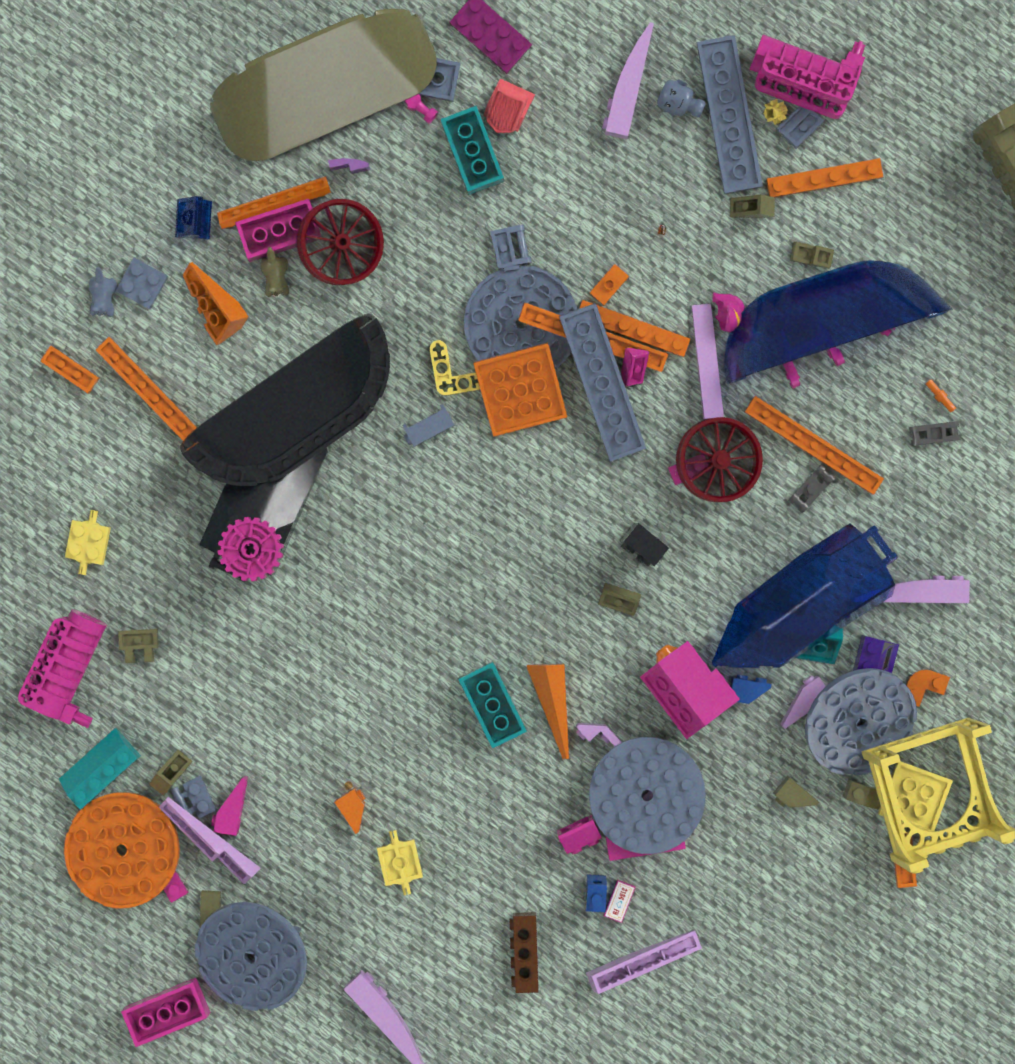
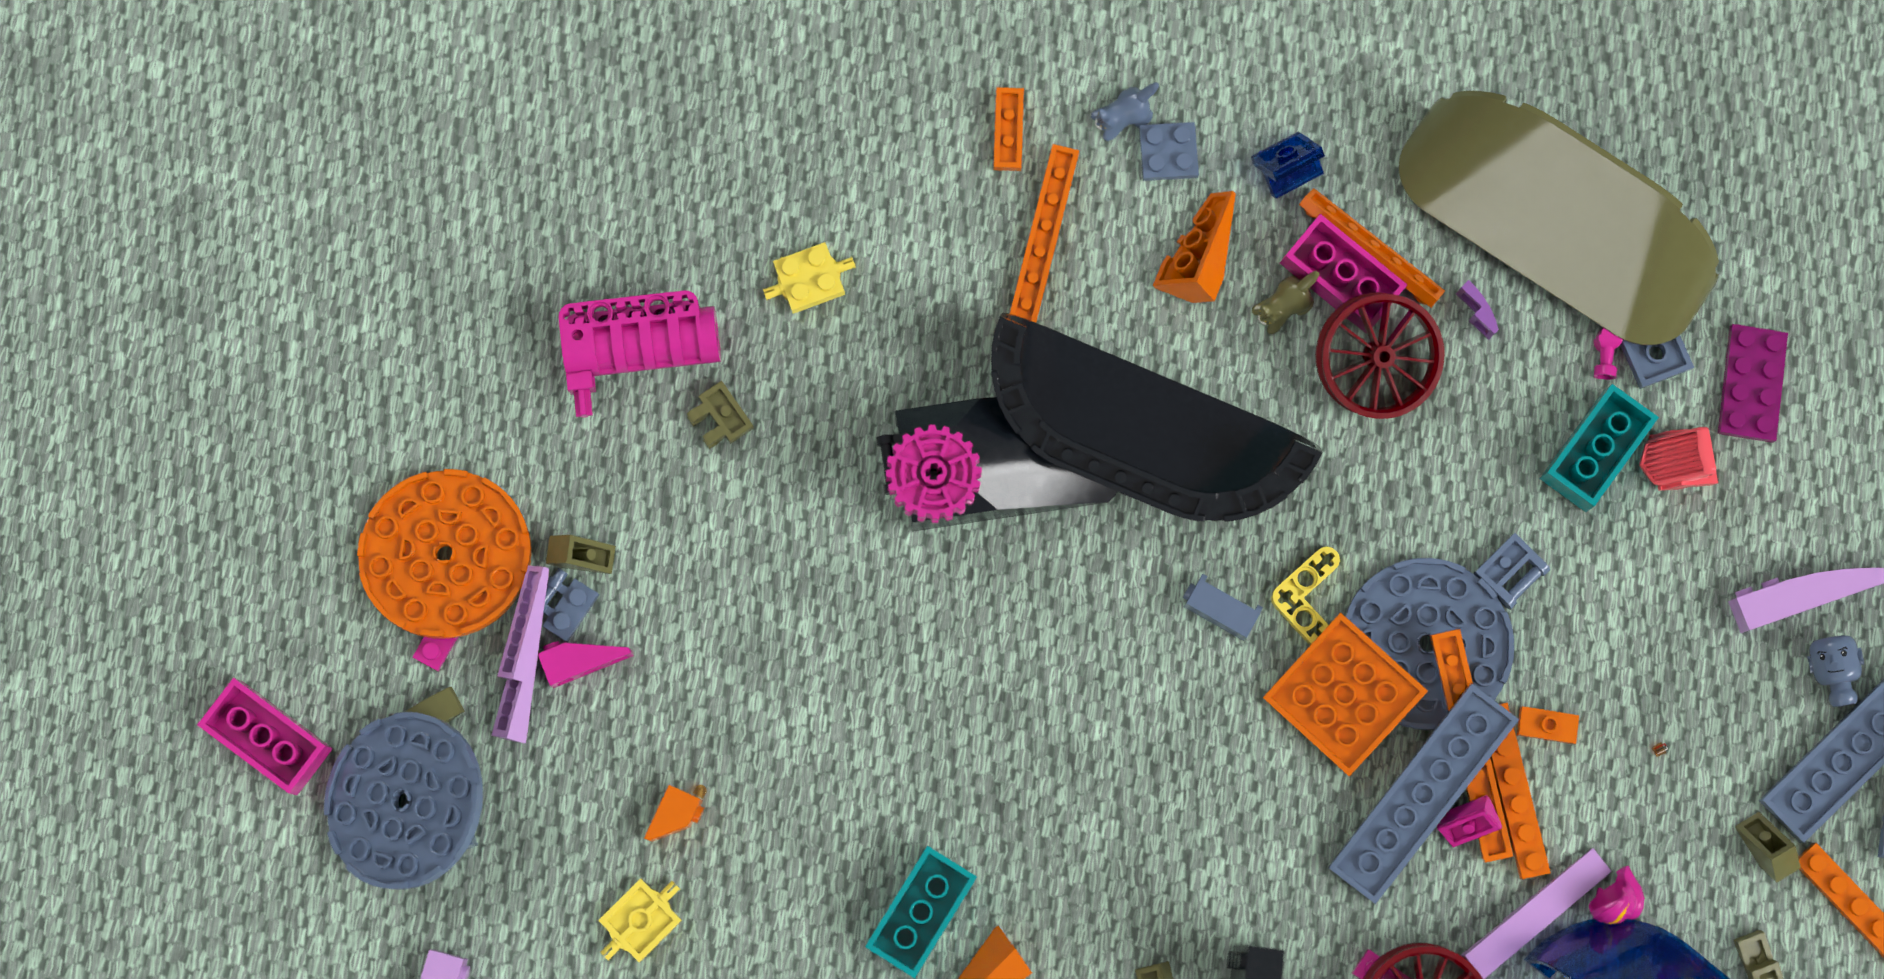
camera: 50 degrees right, 10 degrees down
(98, 768) = (531, 462): teal slope -> none

